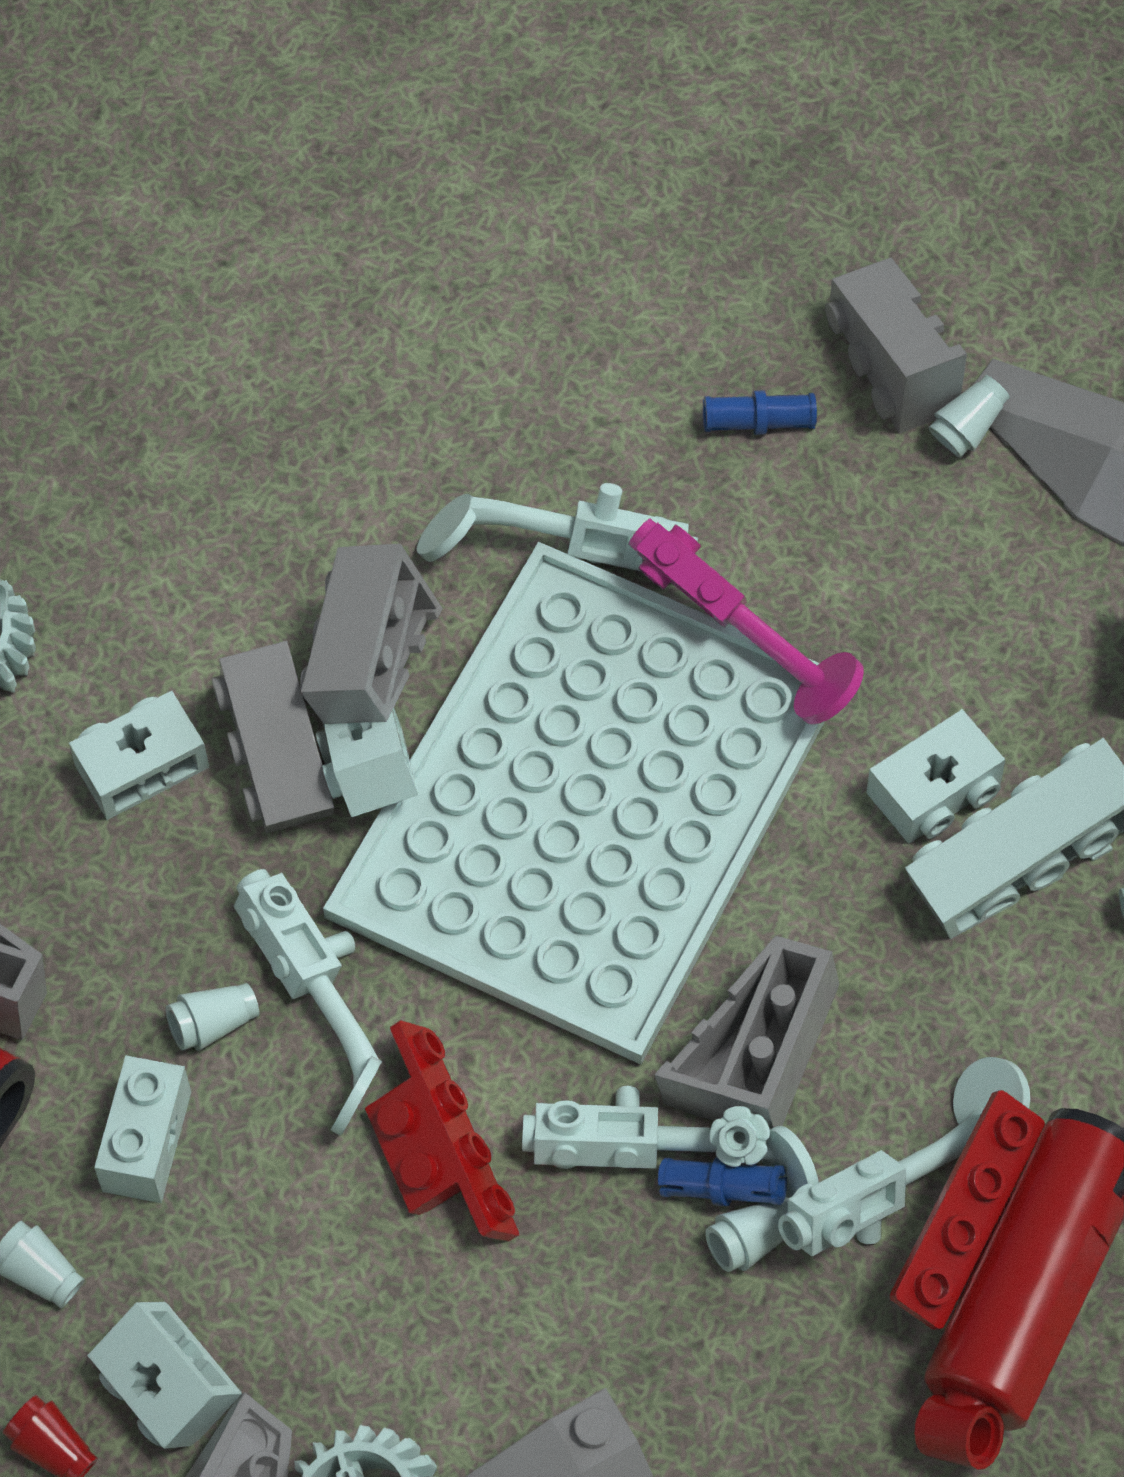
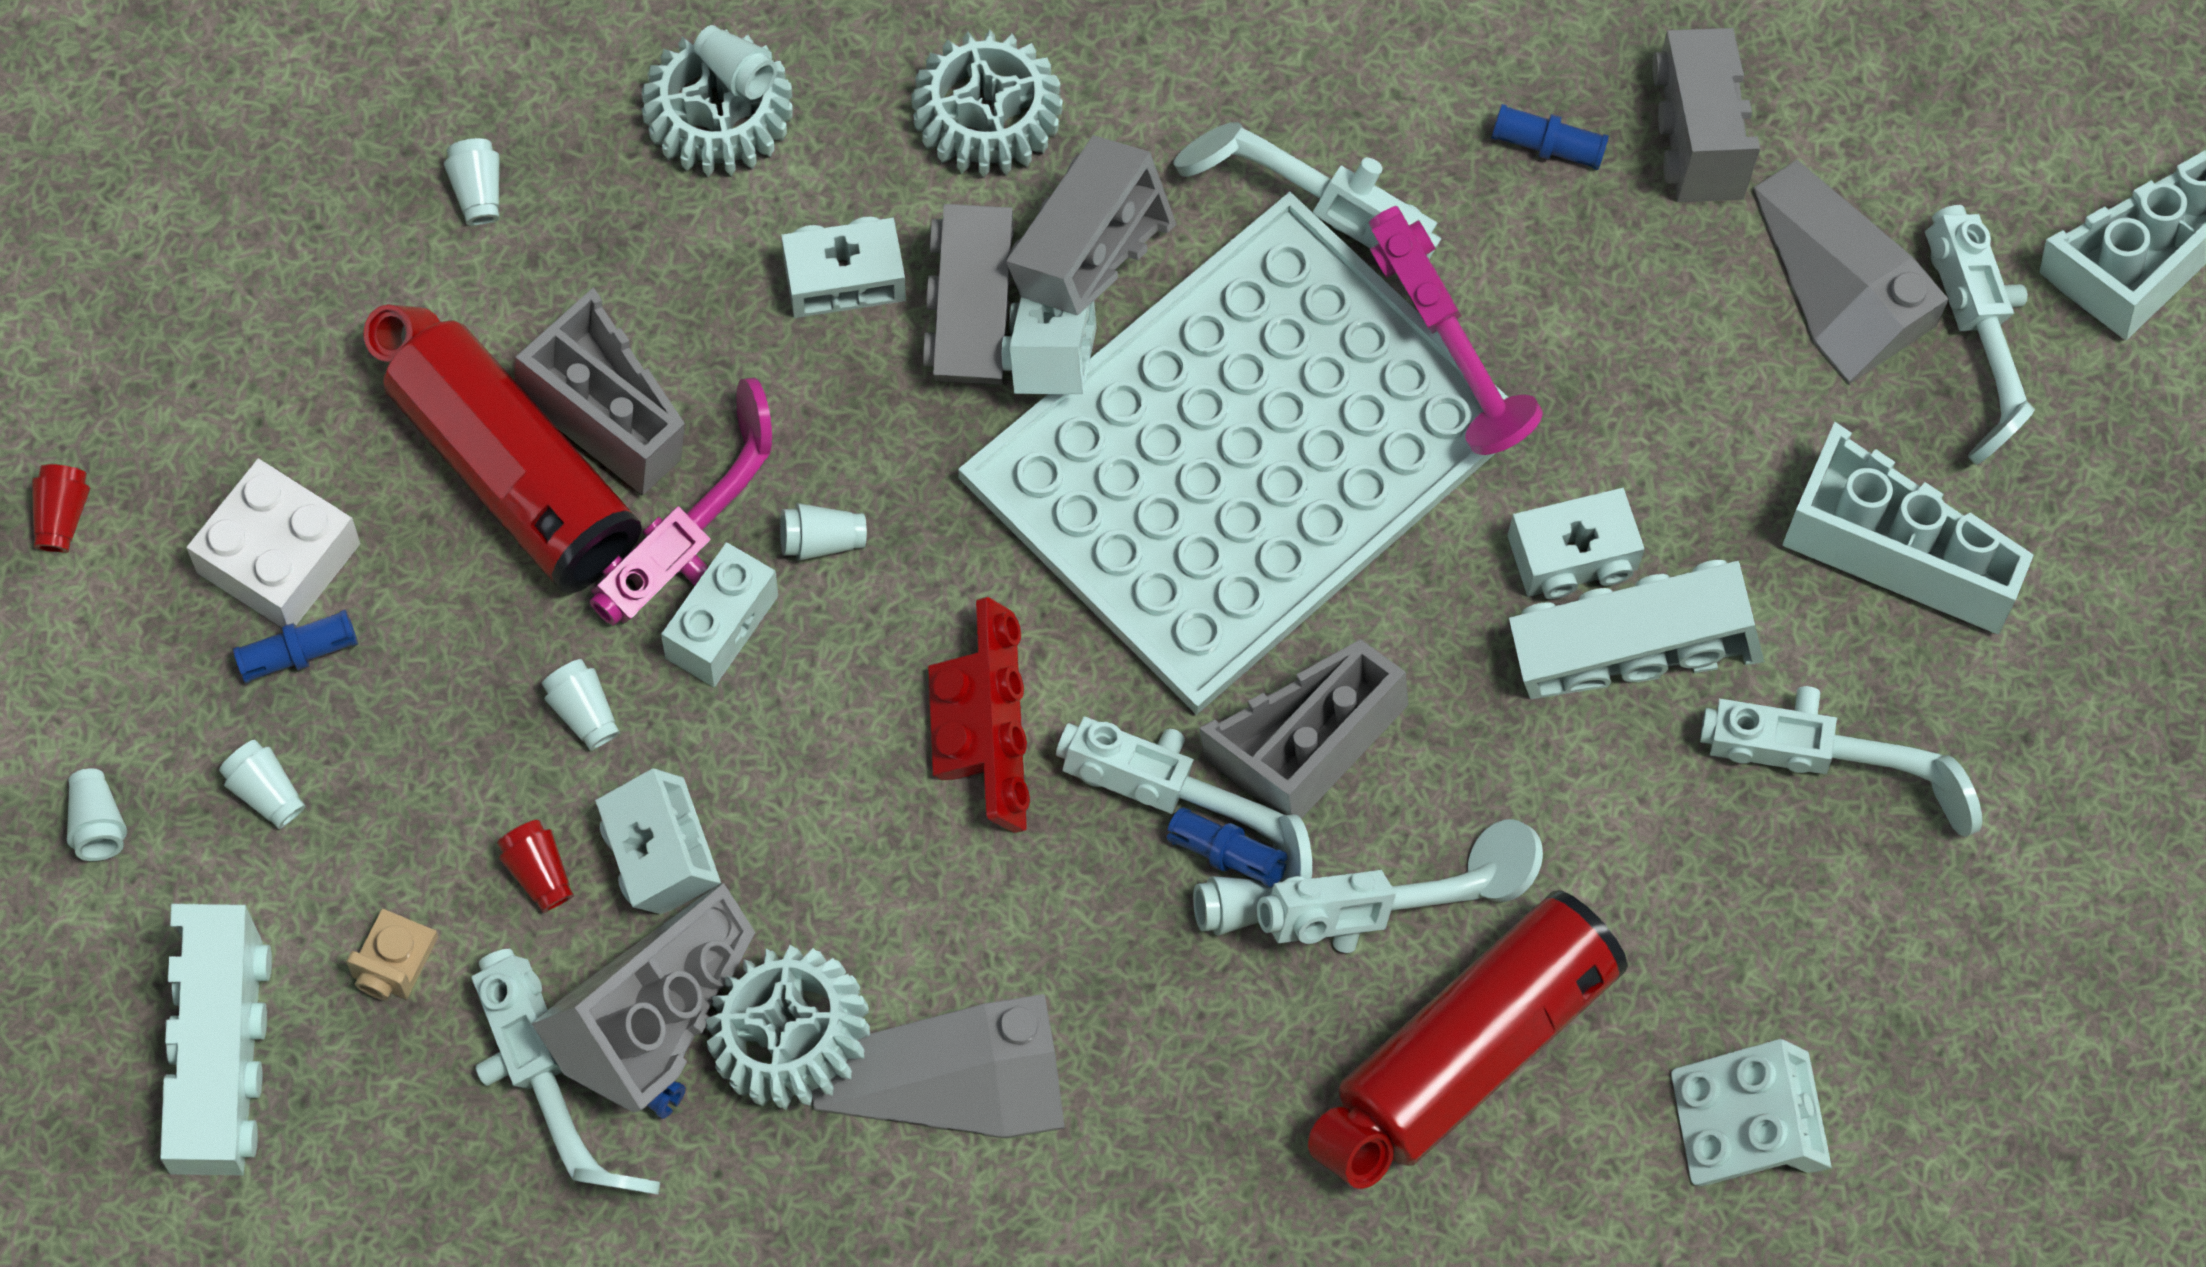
camera: 15 degrees right, 5 degrees up
(73, 1070) = (673, 542): none -> dark pink piece
(208, 582) = (948, 118): none -> light aqua gear
(307, 965) = (924, 517): light aqua piece -> none
(756, 1135) = (1270, 812): light aqua plate -> none
(967, 1210) = (1437, 951): red bracket -> none
(969, 416) = (1748, 208): light aqua cone -> none

